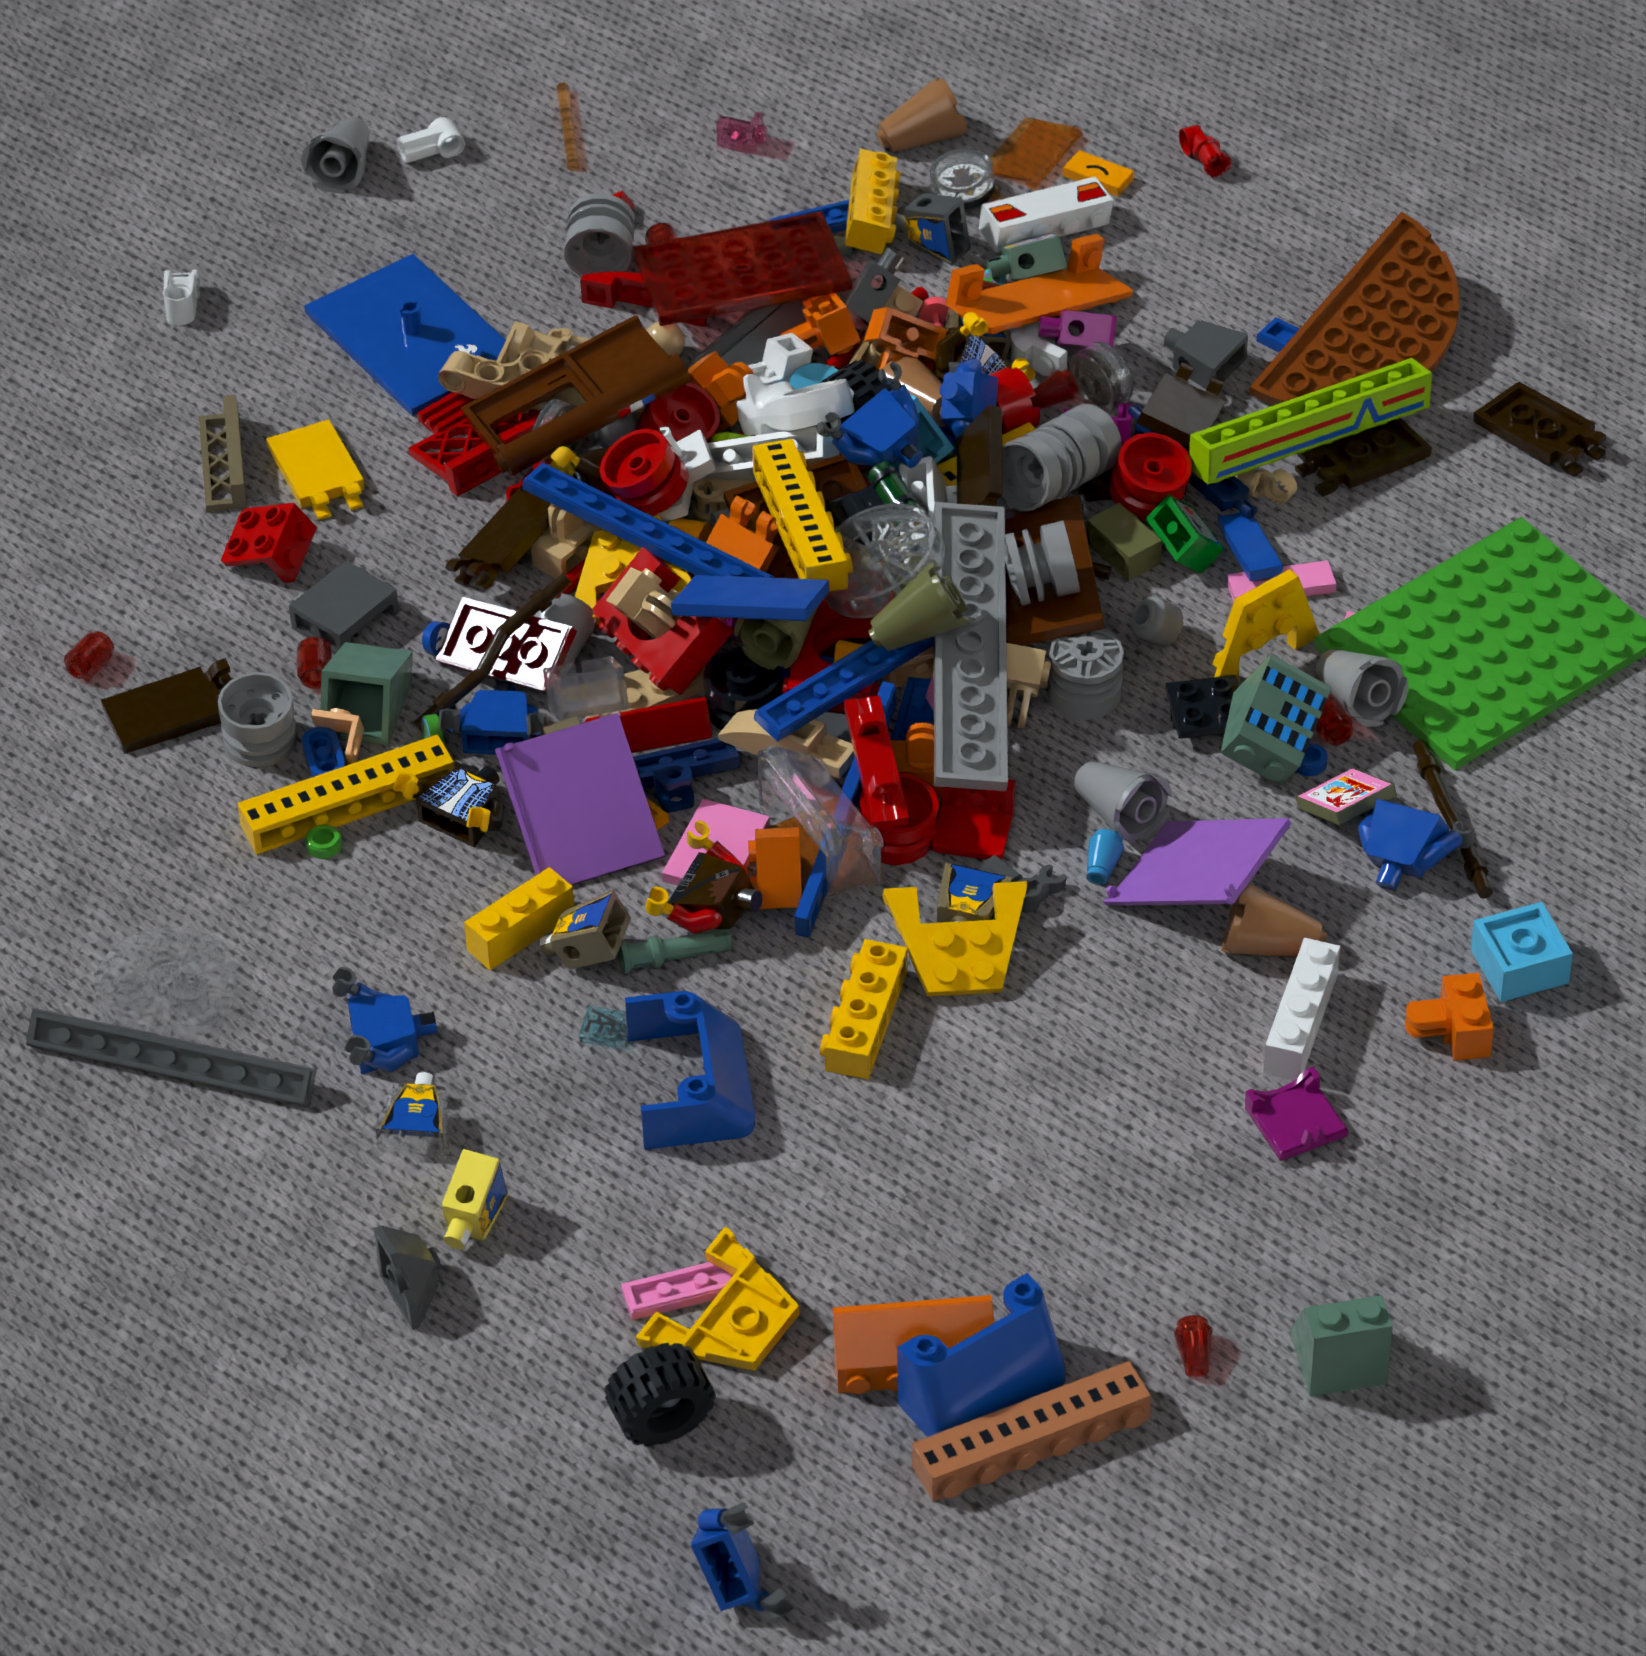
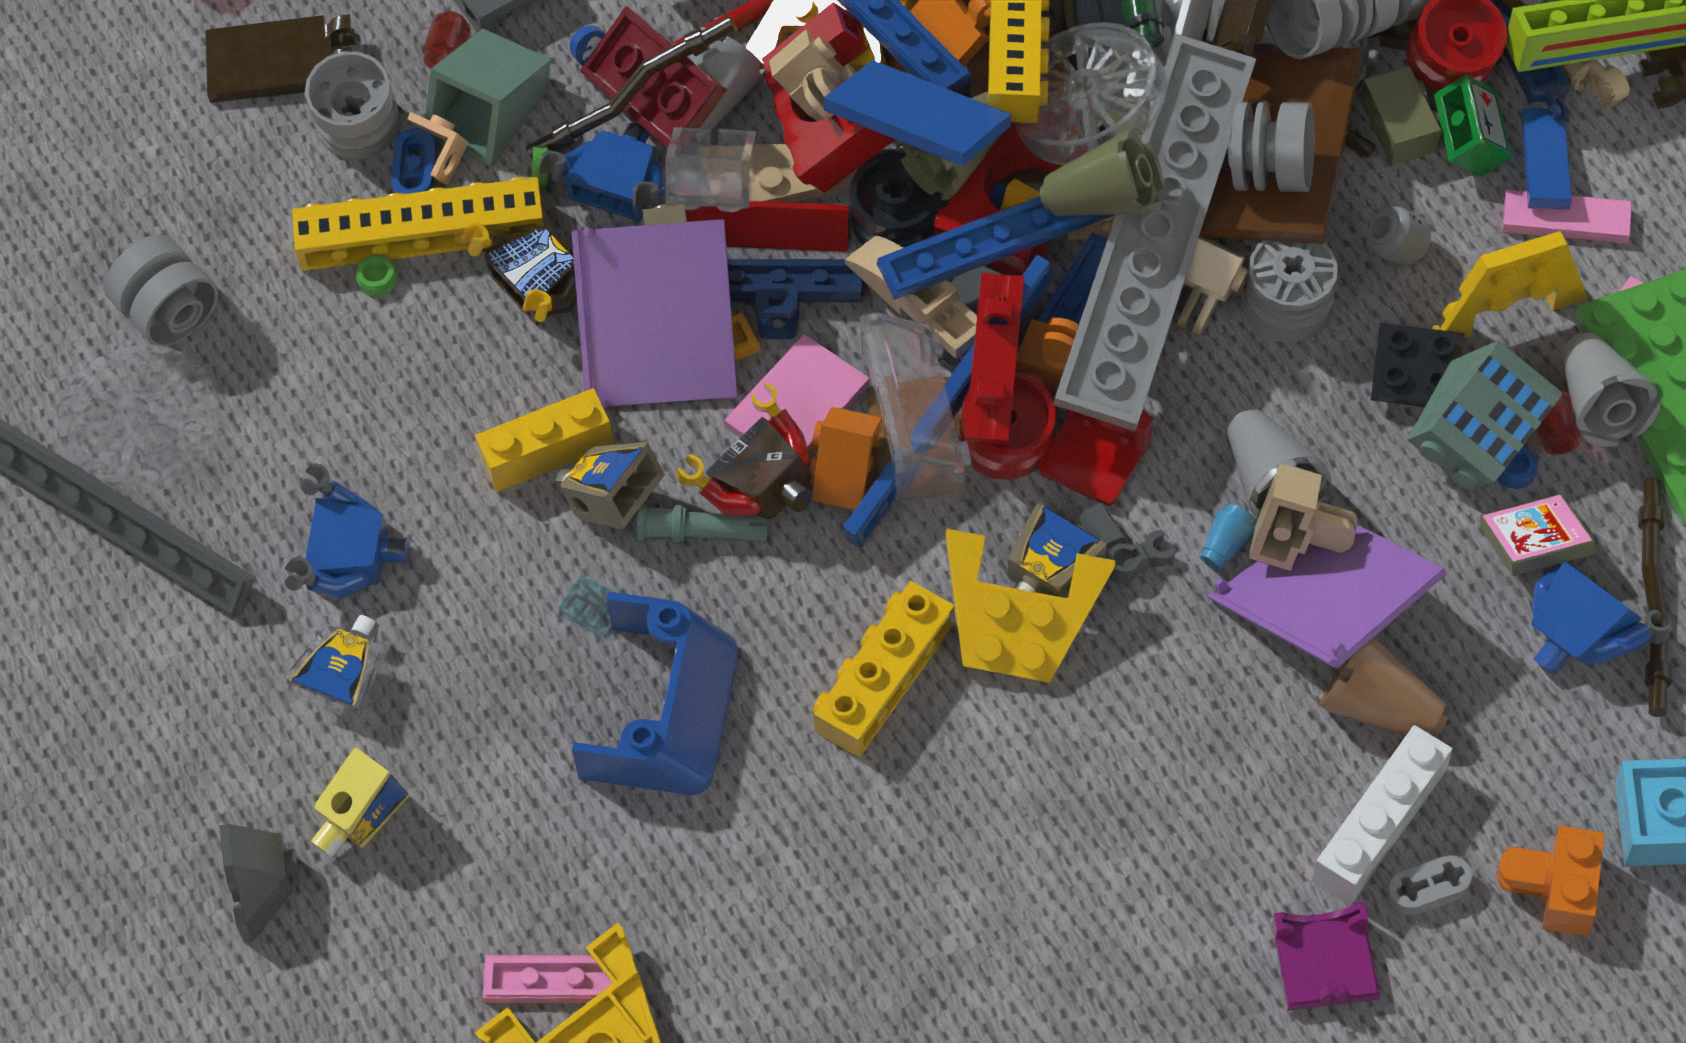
camera: 20 degrees right, 15 degrees up
(149, 884) = (160, 290): none -> light grey wheel
(1157, 820) = (1295, 519): none -> tan brick
(1359, 1054) = (1433, 894): none -> light grey beam

